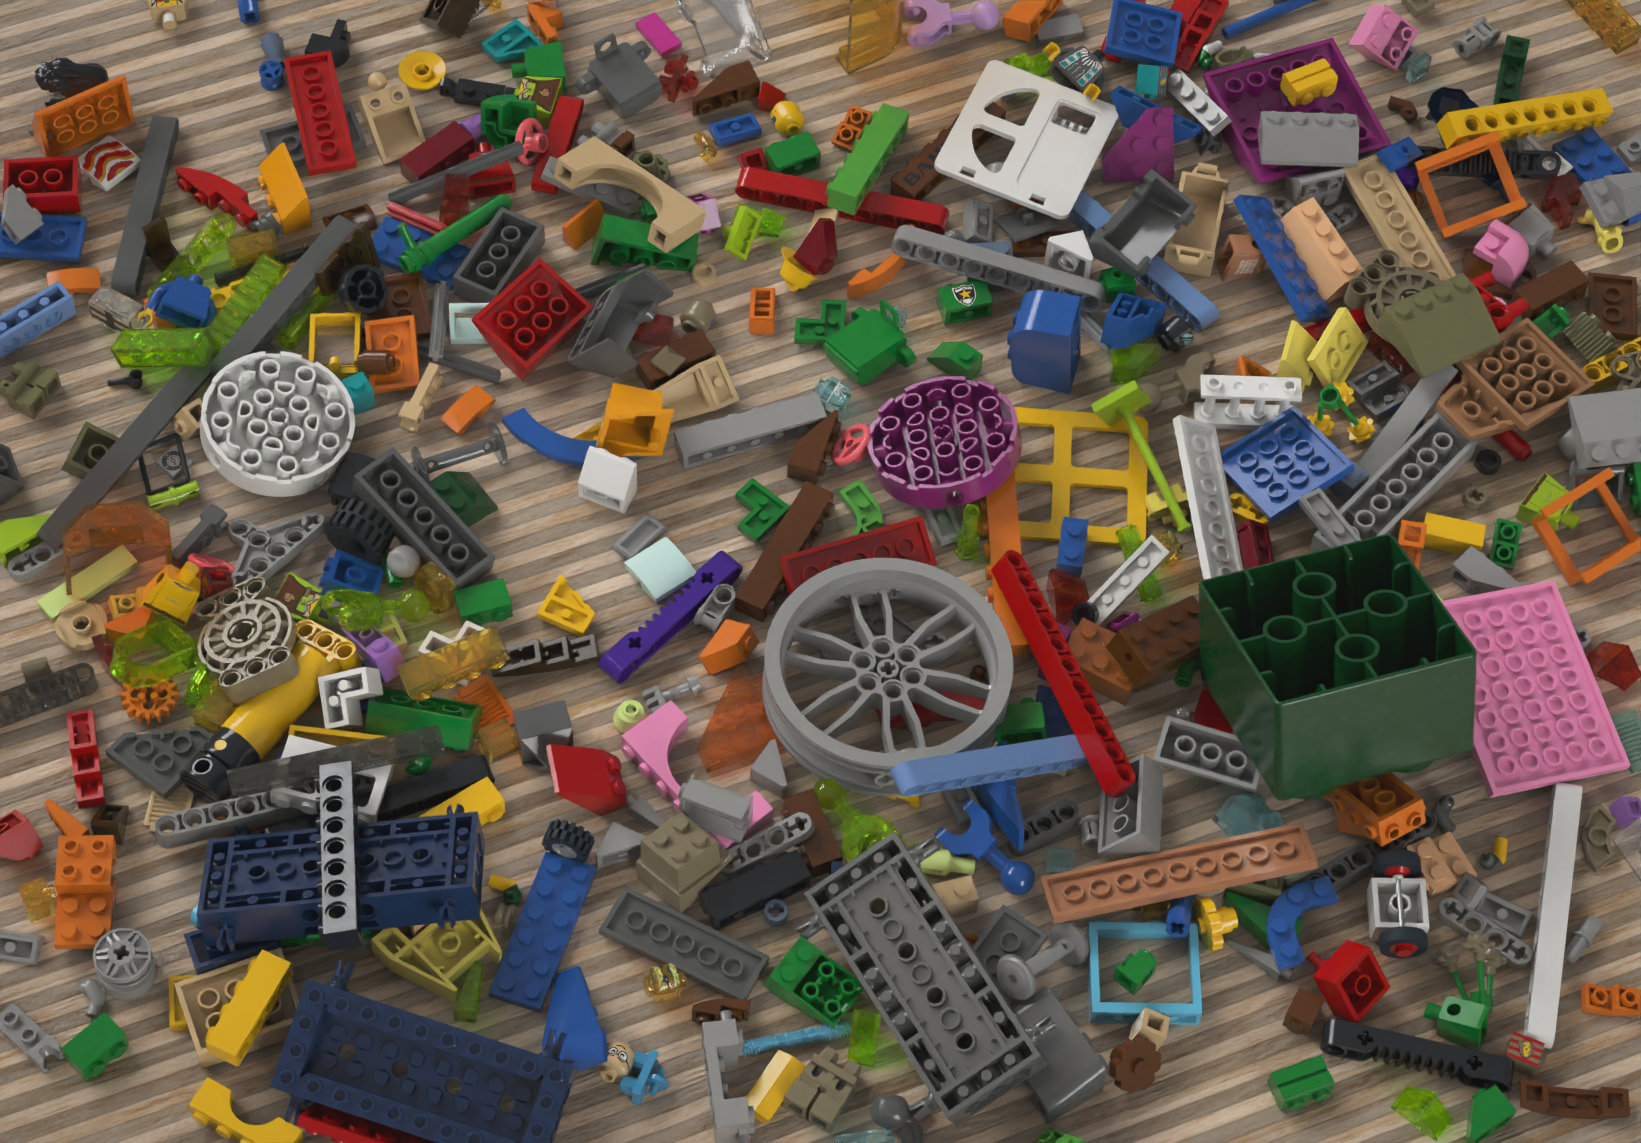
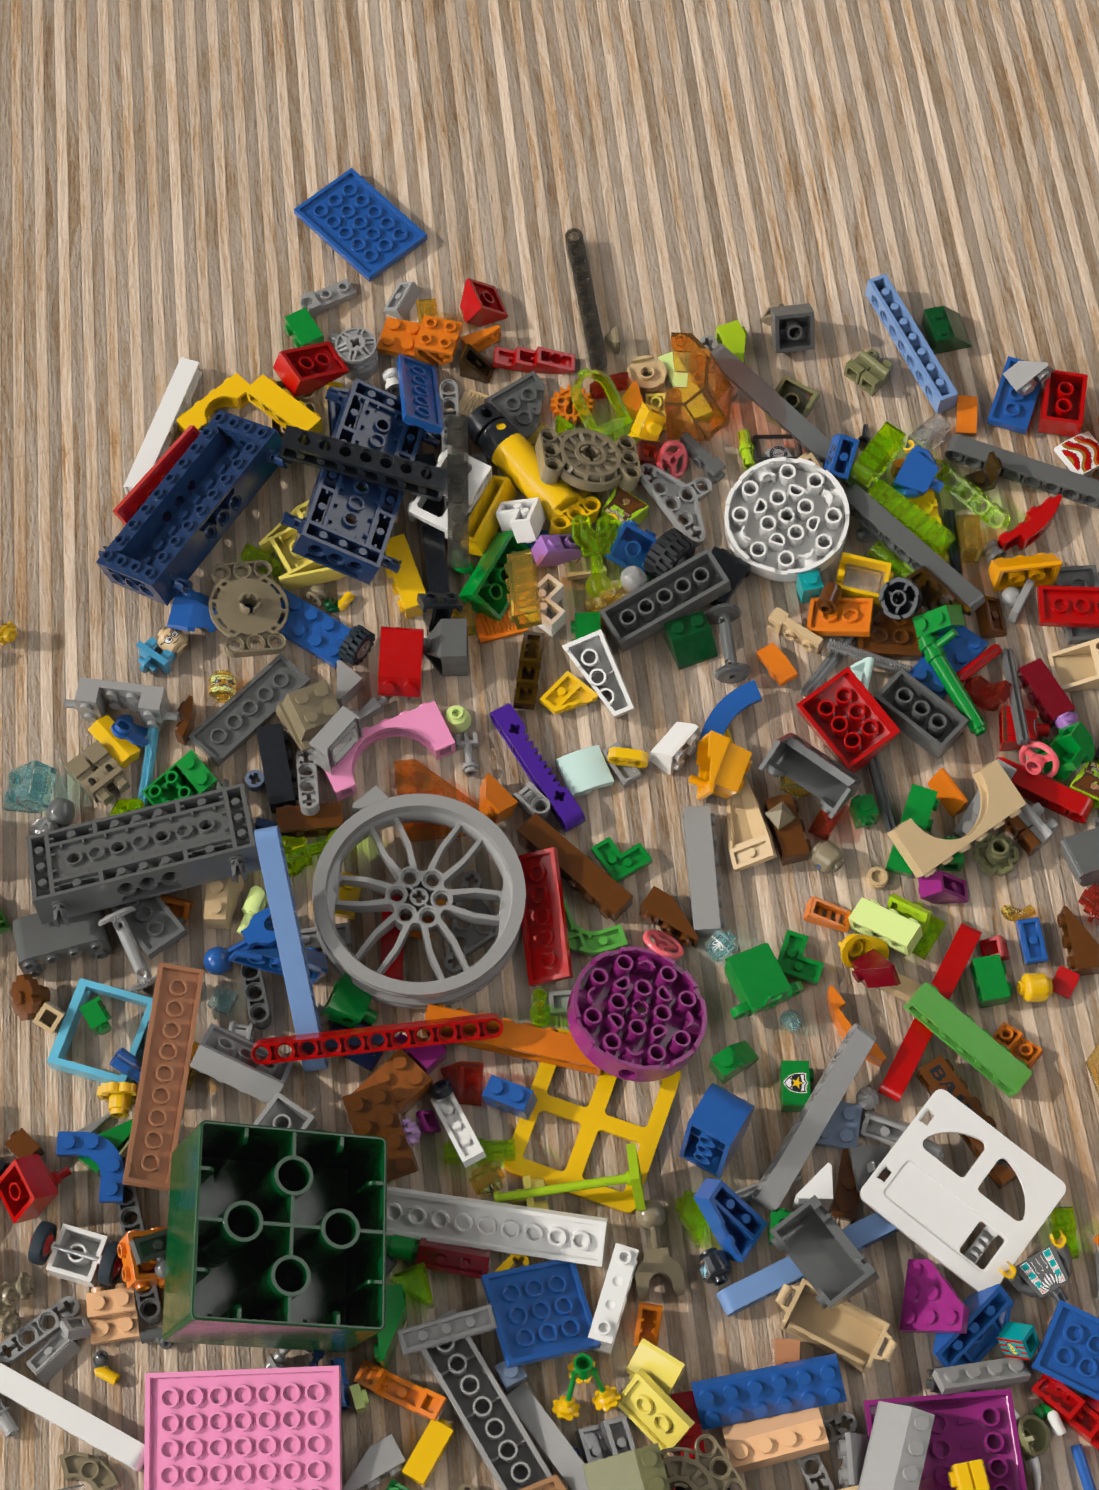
camera: 110 degrees right, 5 degrees up
(161, 910) = (391, 379): none -> white wheel
(177, 995) = (309, 367): none -> red slope
(185, 373) = (841, 456): none -> blue brick
(188, 852) = (419, 394): none -> blue plate
(325, 195) = (1014, 598): none -> light grey tile
(382, 250) = (939, 620): none -> green brick
(498, 757) = (438, 607): none -> black pin
(532, 568) = (600, 669): none -> white wedge
(535, 986) = (234, 618): none -> dark tan piece
(636, 523) = (628, 757): none -> yellow beam
(757, 1069) = (126, 729): none -> blue plate
(764, 248) = (876, 921): none -> yellowish green brick
(1384, 791) = (151, 1248): none -> dark grey plate

